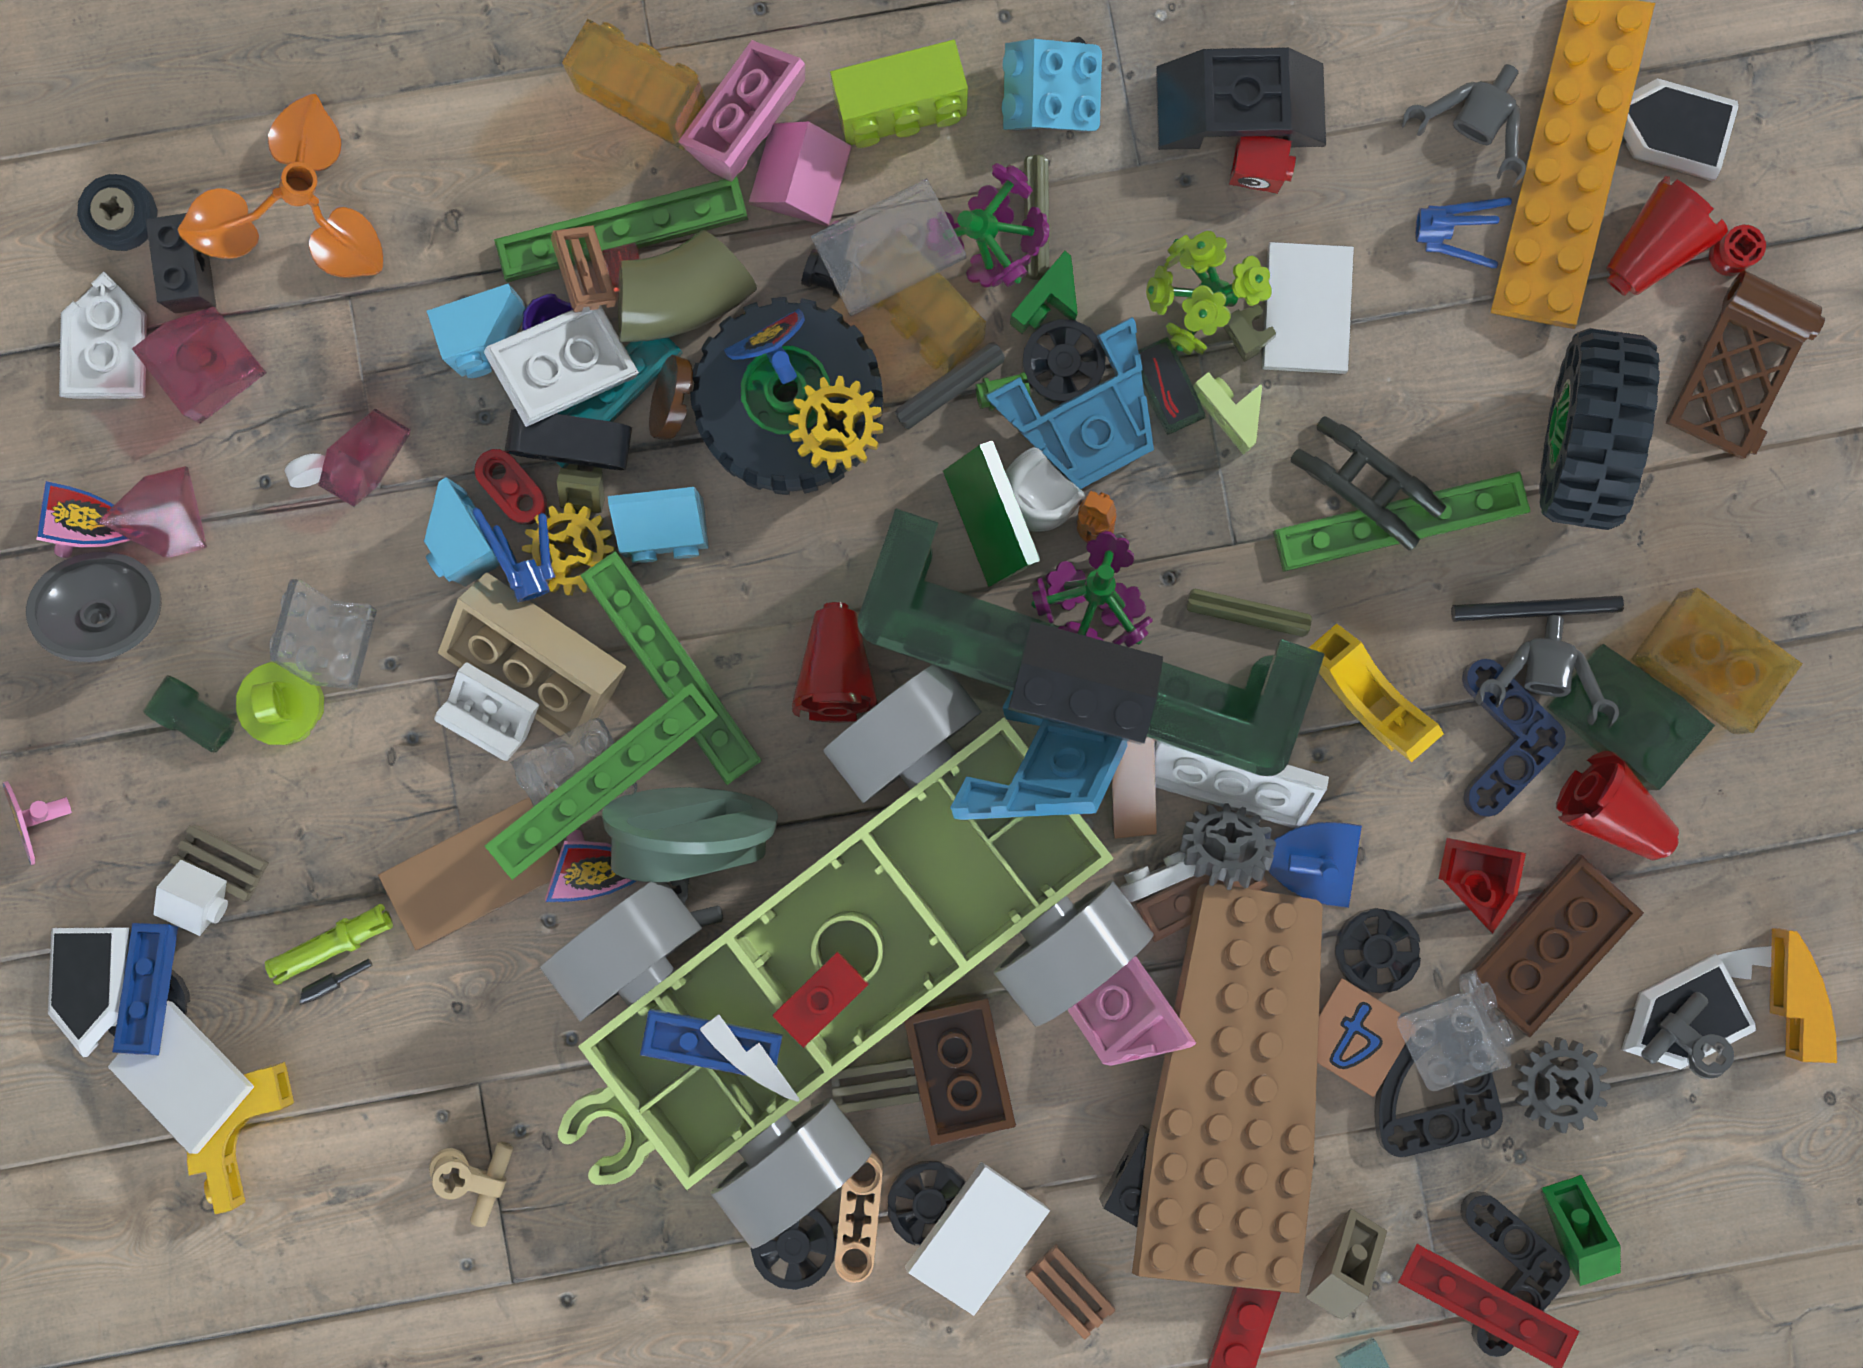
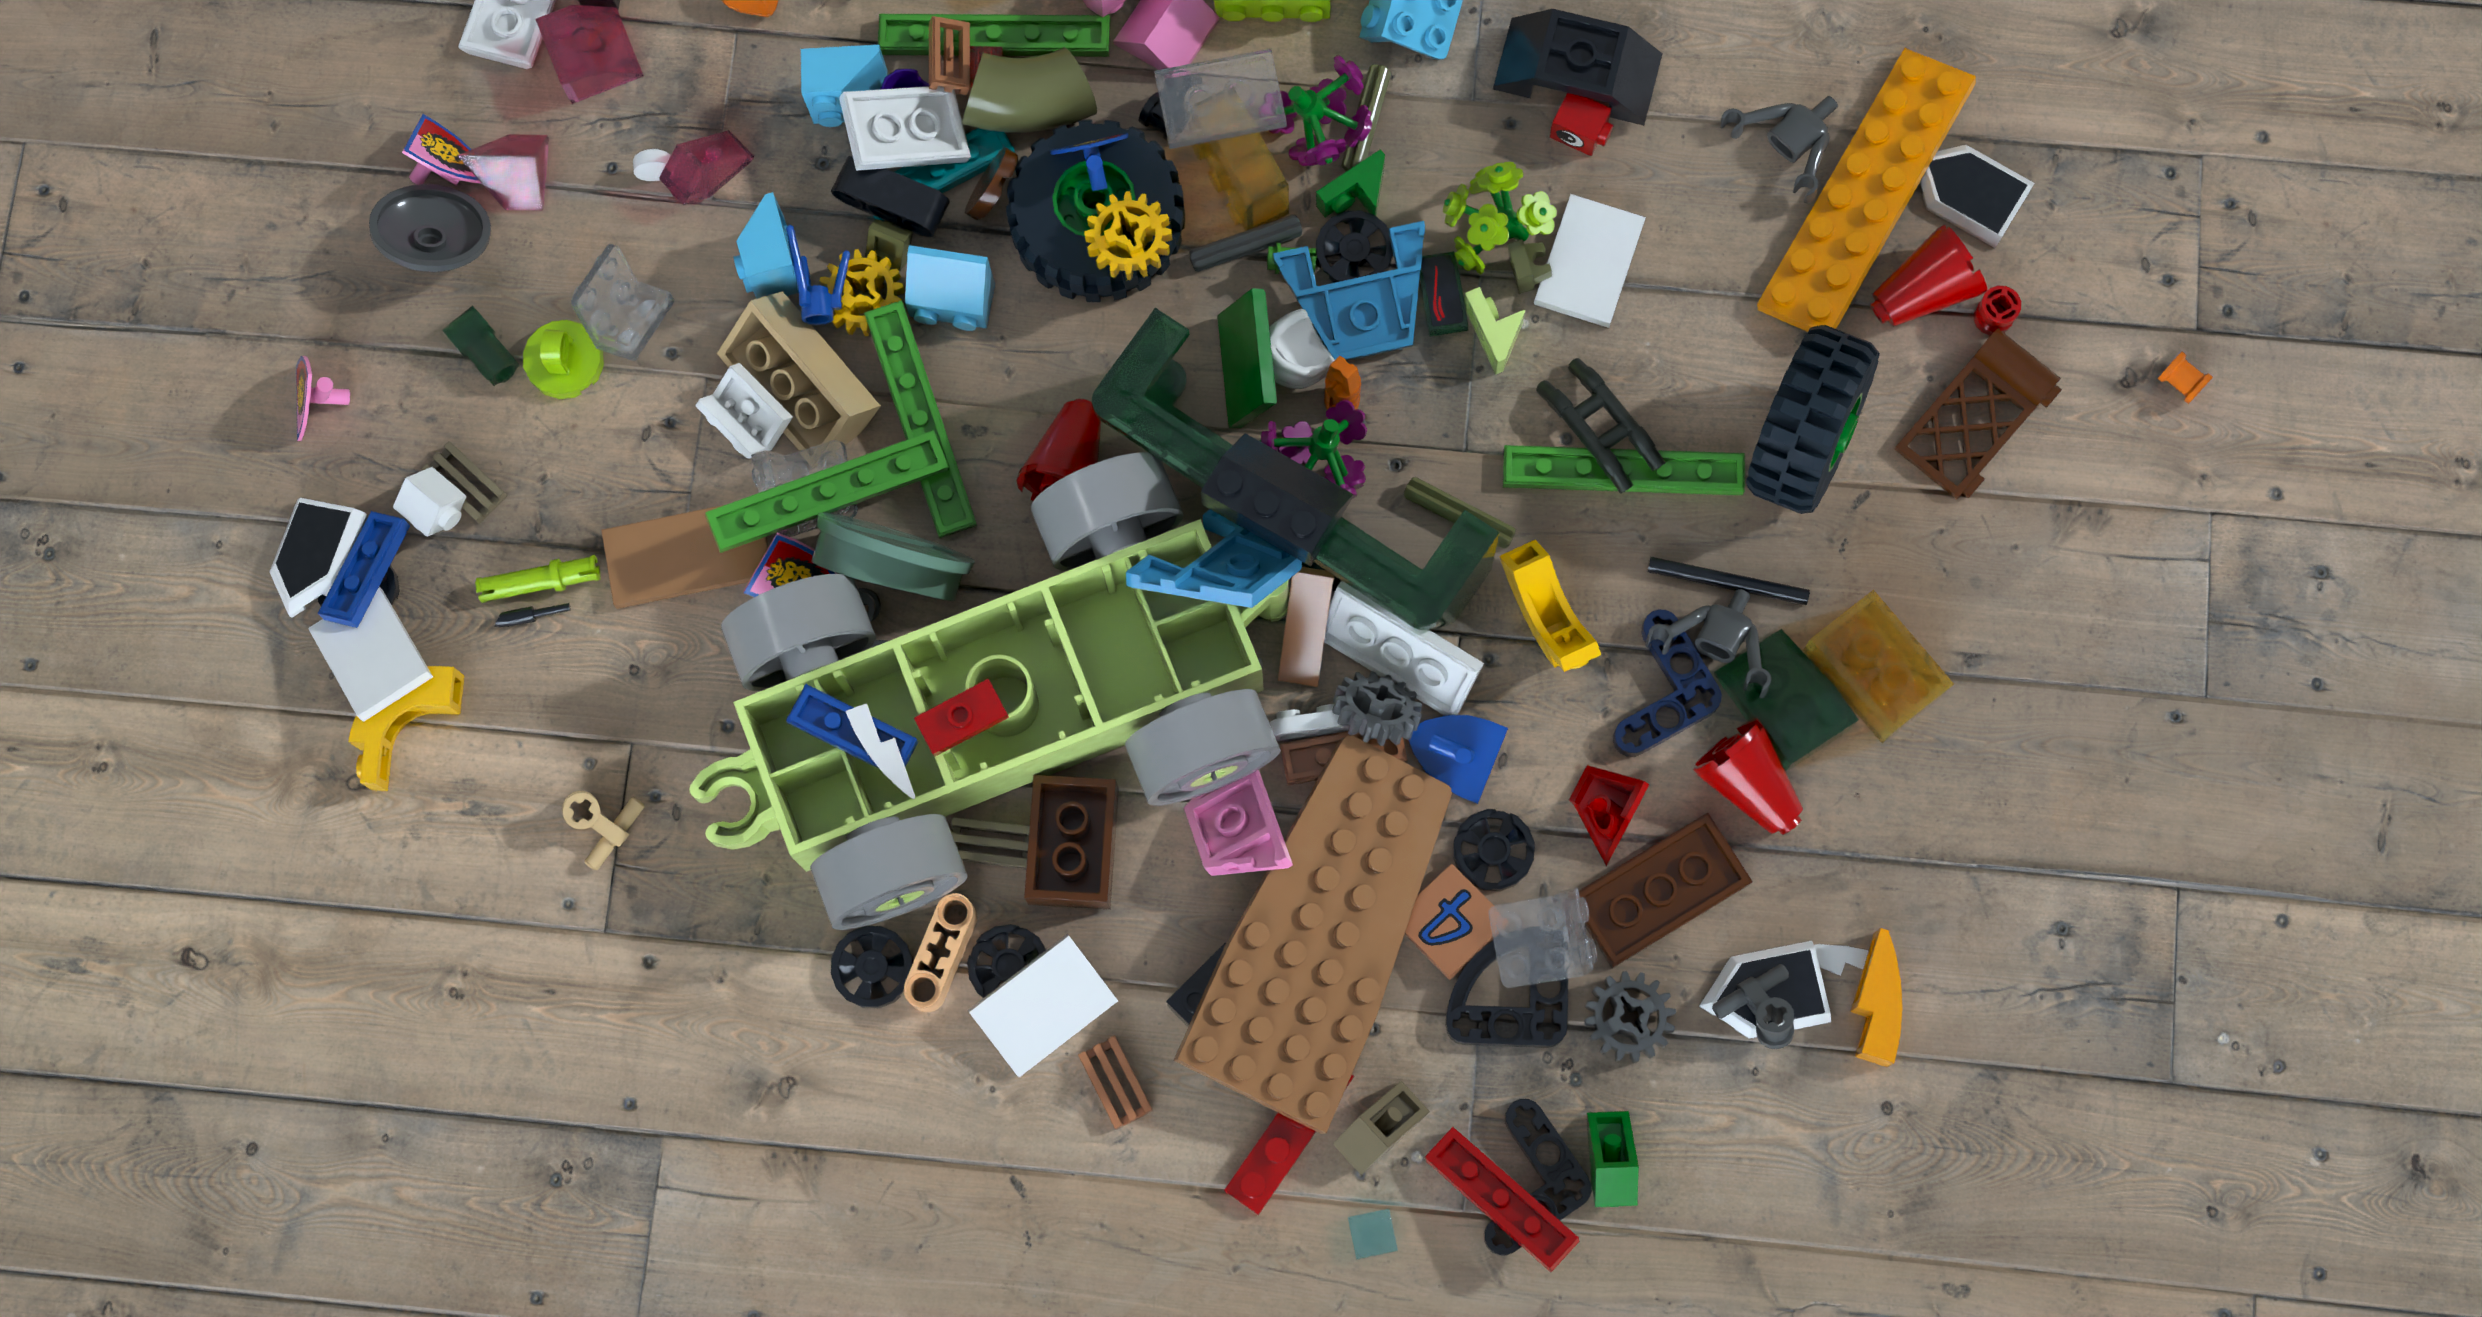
camera: 20 degrees right, 10 degrees down
(511, 488) = (827, 228): red plate -> none
(1438, 223) = (1727, 217): blue plant -> none

